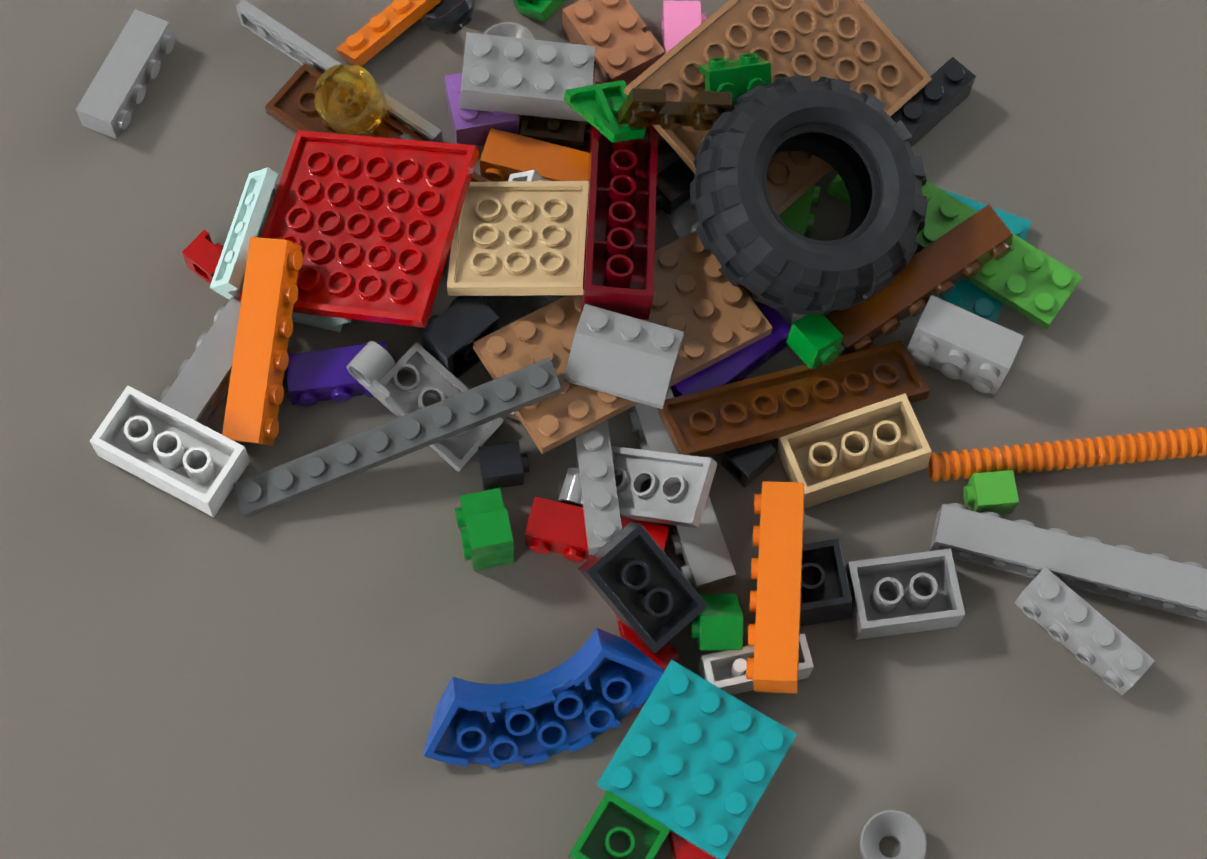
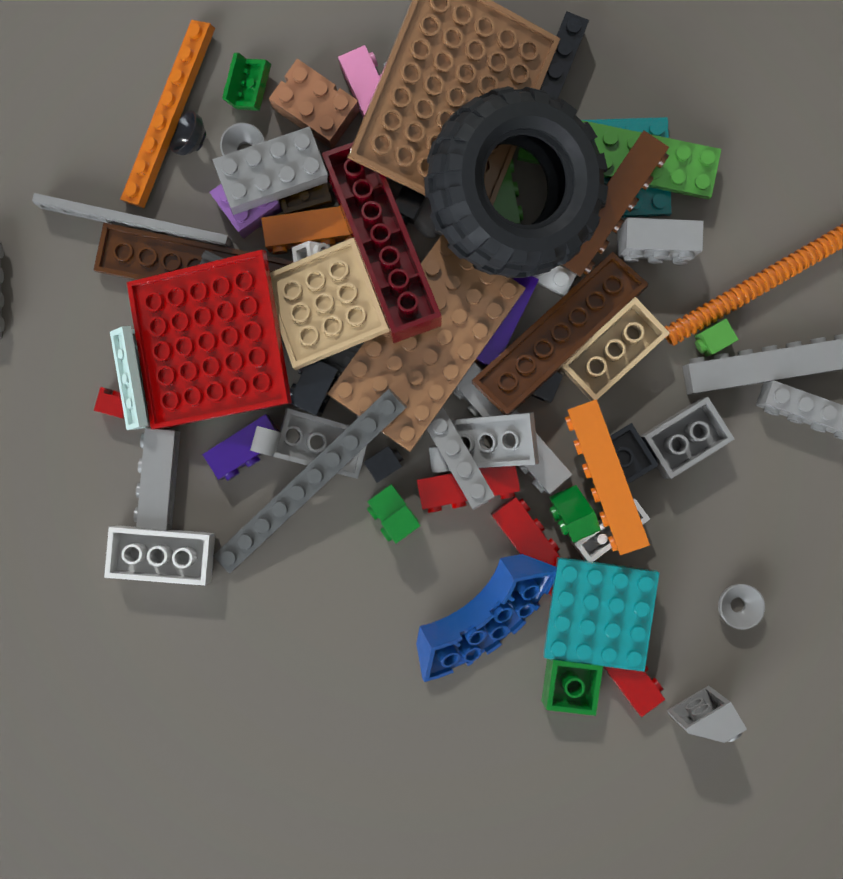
camera: 25 degrees left, 20 degrees up
(262, 341) = (183, 454): orange brick -> none
(340, 85) = (141, 252): clear yellow brick -> none
(600, 108) = (343, 177): green wing -> none
(623, 356) = (437, 363): light grey slope -> none
(643, 587) = (520, 522): black brick -> none
(650, 107) = (413, 153): dark brown plate -> none
(736, 75) = (426, 112): green bracket -> none
(815, 340) = (558, 284): green brick -> none

